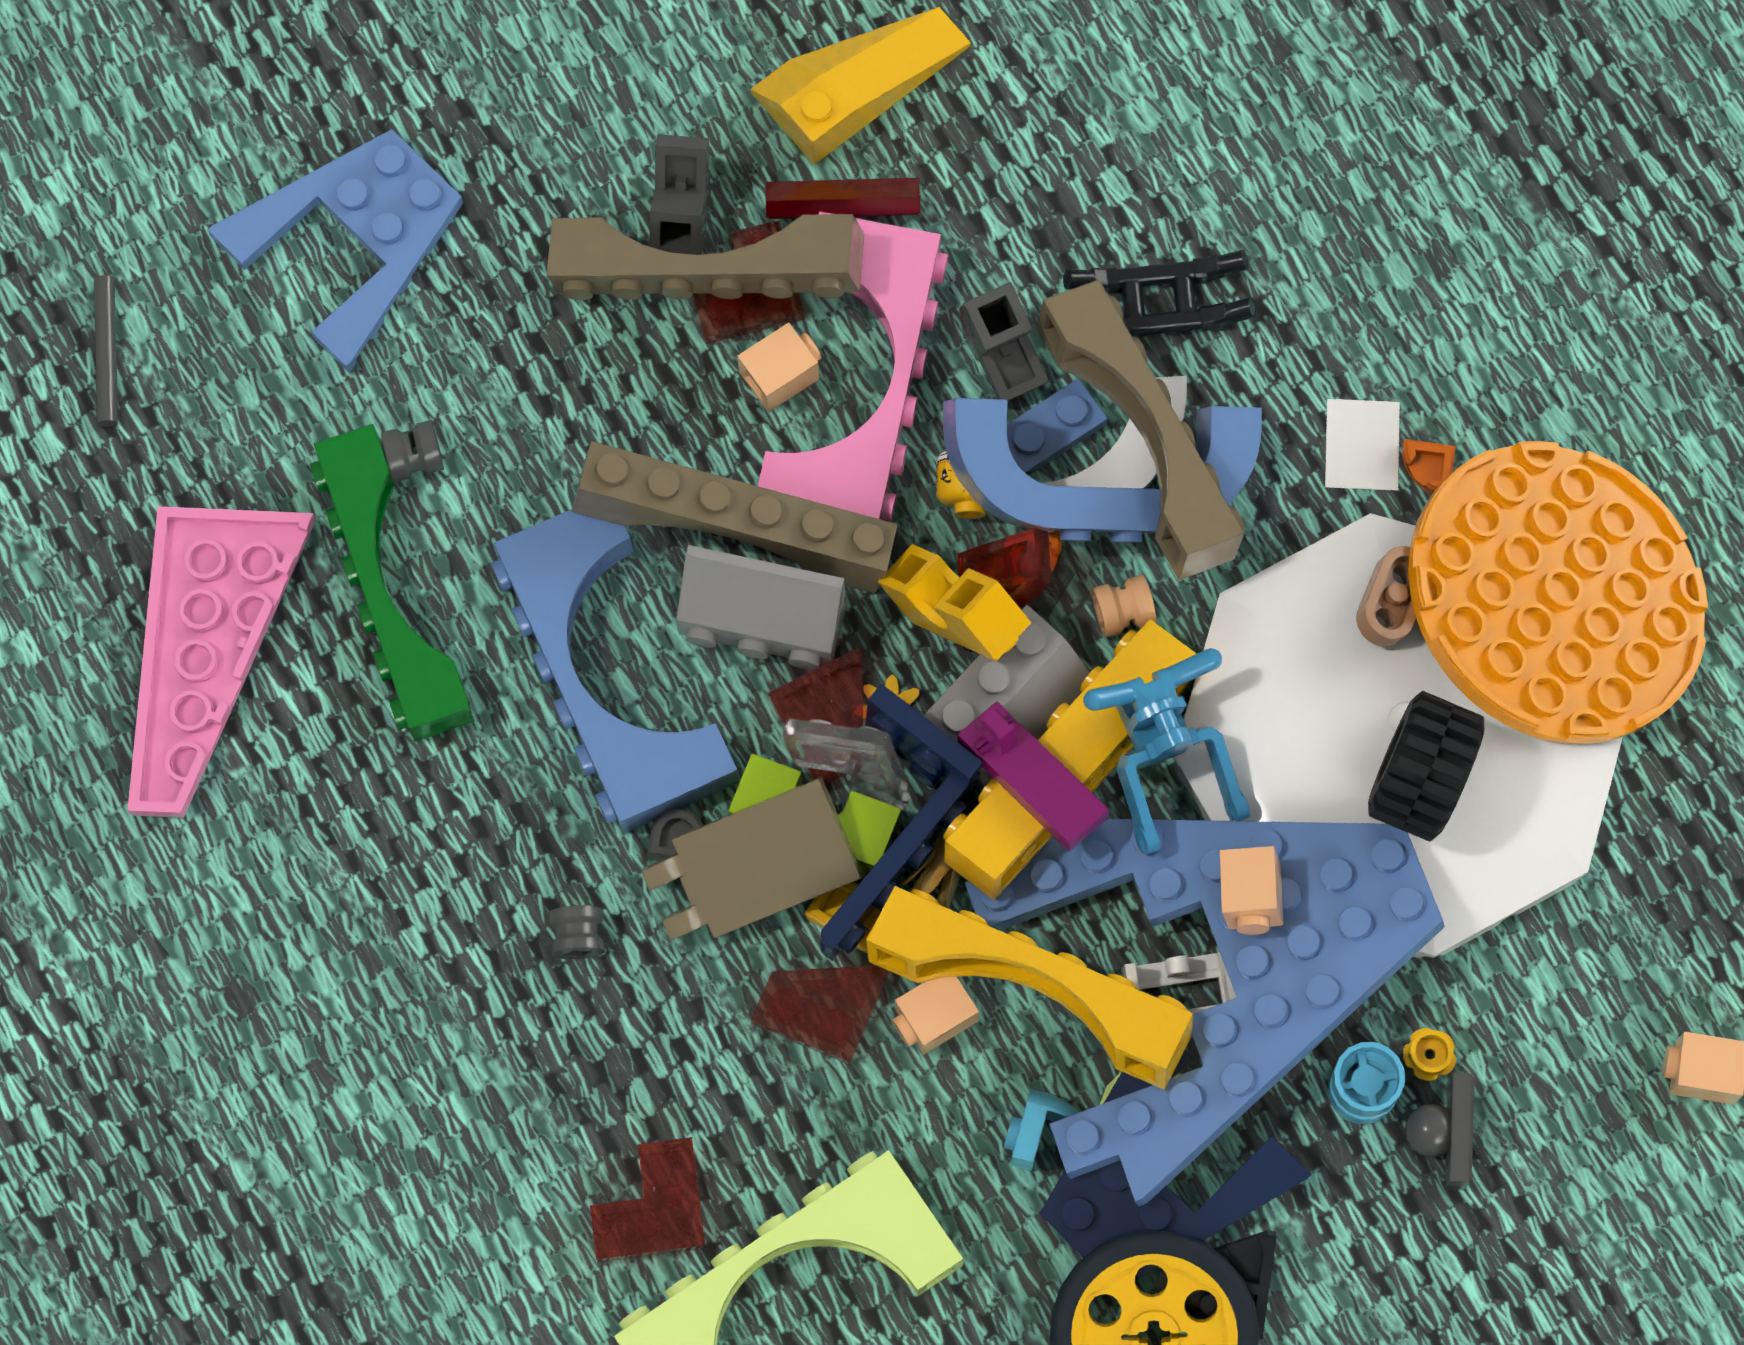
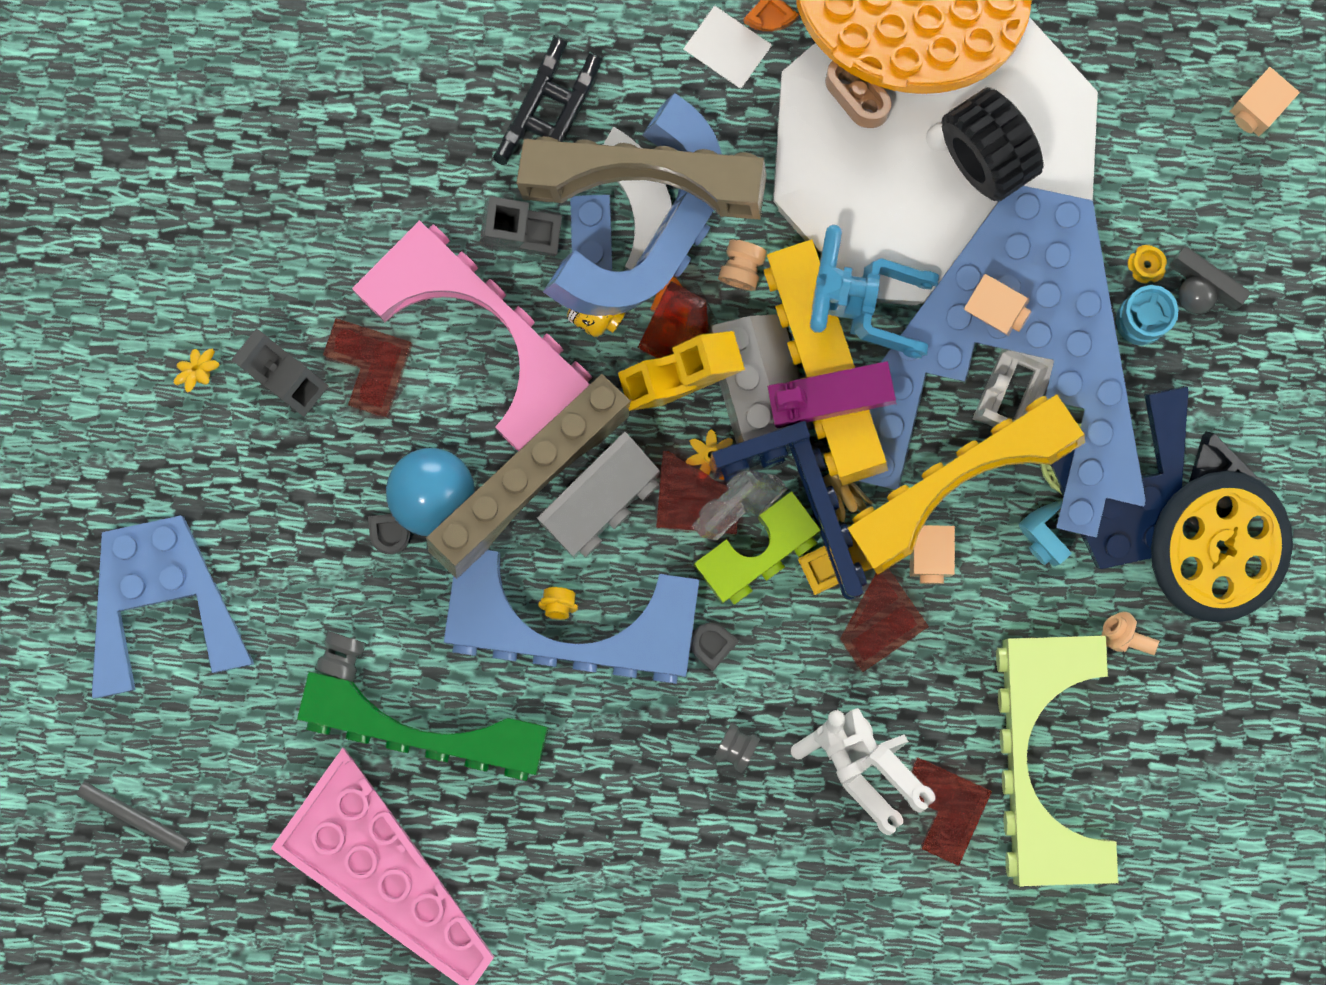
camera: 60 degrees left, 10 degrees up
(582, 421) = (388, 534): none -> dark grey tile
(617, 642) = (558, 602): none -> yellow plate
(629, 116) = (197, 370): none -> yellow plant
(654, 419) = (427, 489): none -> dark azure piece
(654, 1075) = (853, 749): none -> white piece
(757, 861) = (767, 605): dark tan tile -> none
(780, 366) = (438, 380): light nougat brick -> none
(806, 256) = (382, 316): dark tan arch -> none
(847, 196) = (348, 267): dark red tile -> none
(848, 84) = (267, 211): yellow wedge -> none
(982, 1283) = (1121, 634): none -> light nougat plate

